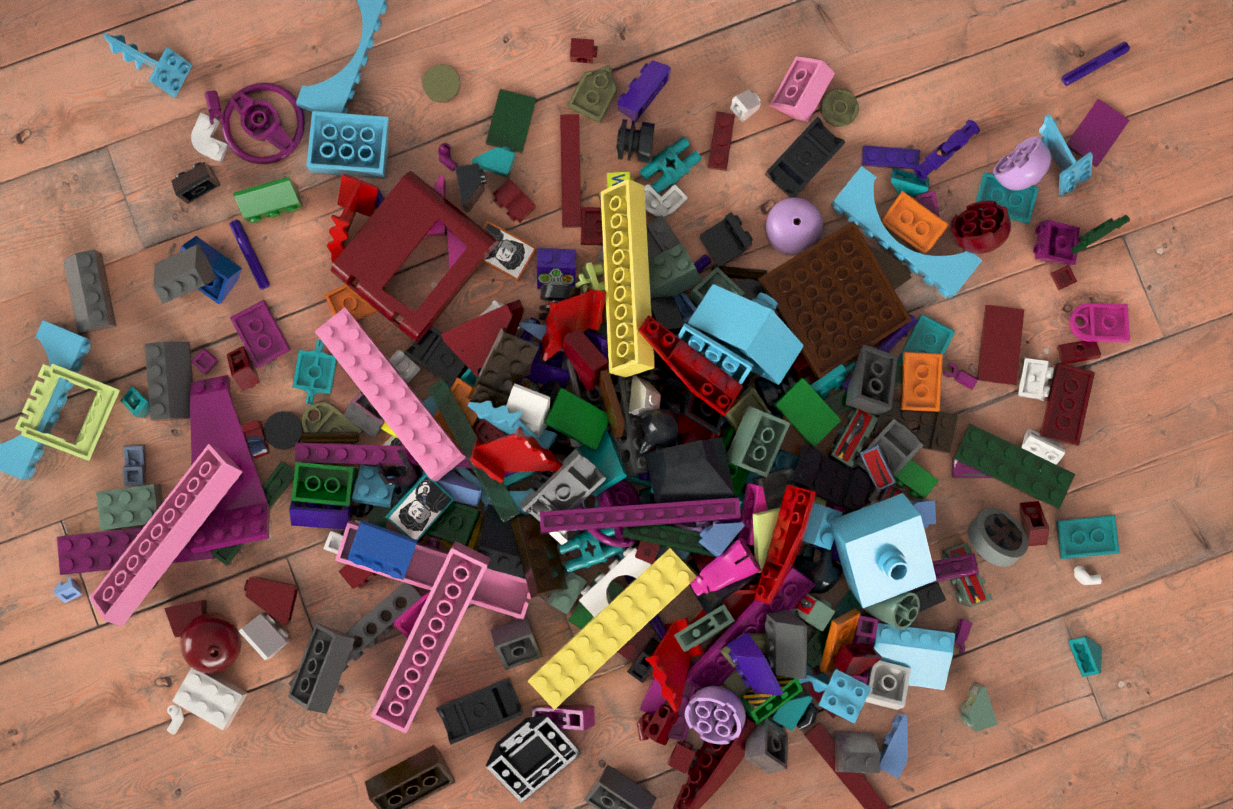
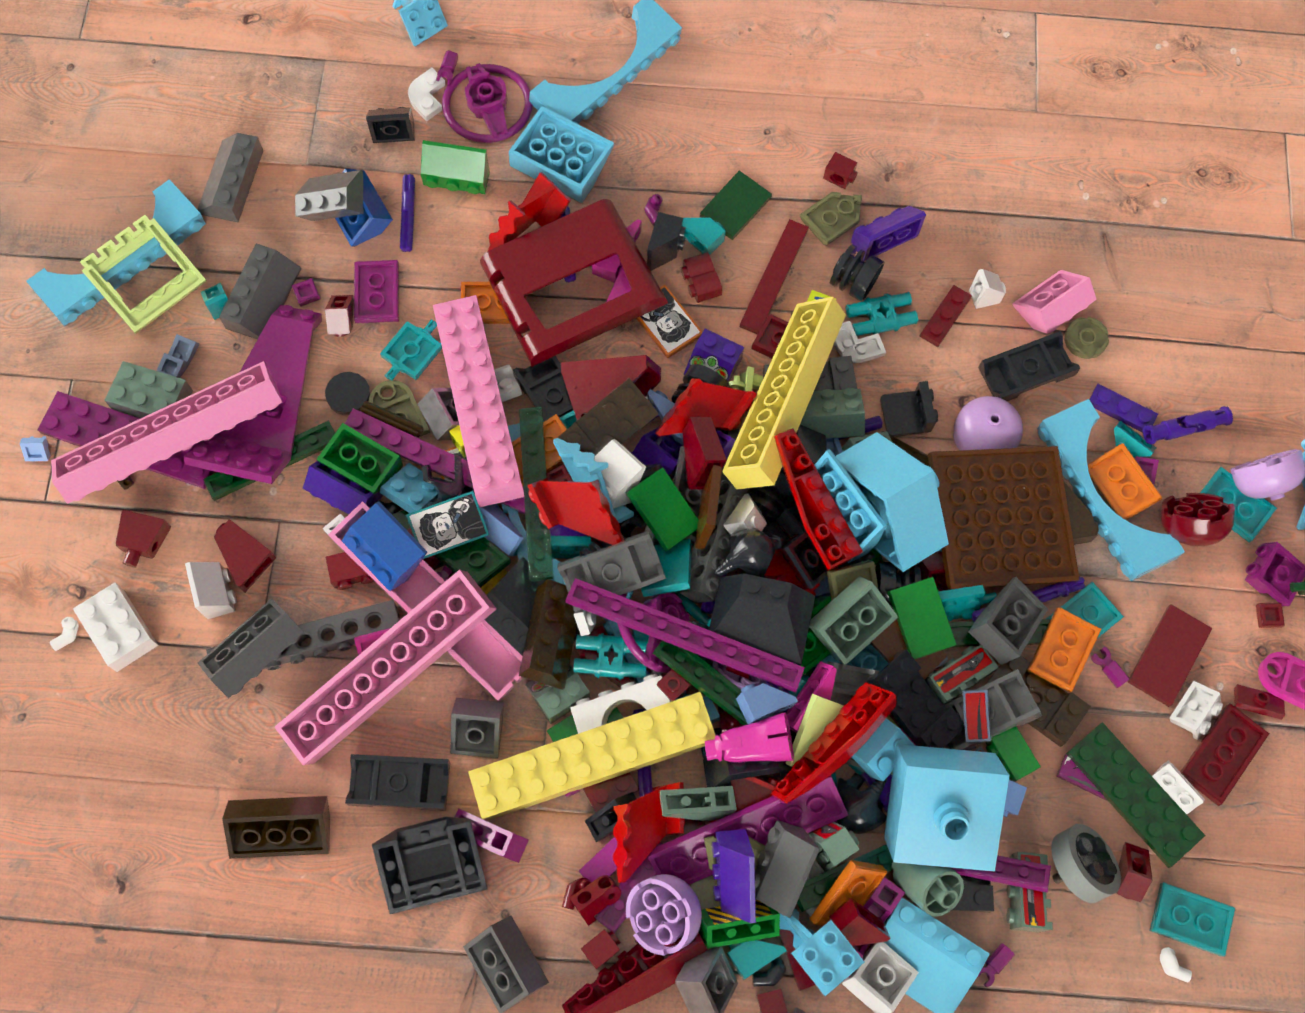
camera: 20 degrees right, 15 degrees down
(210, 633) = (155, 553): dark red cylinder -> none
(256, 438) = (315, 385): leg -> none
(441, 83) = (682, 141): olive tile -> none

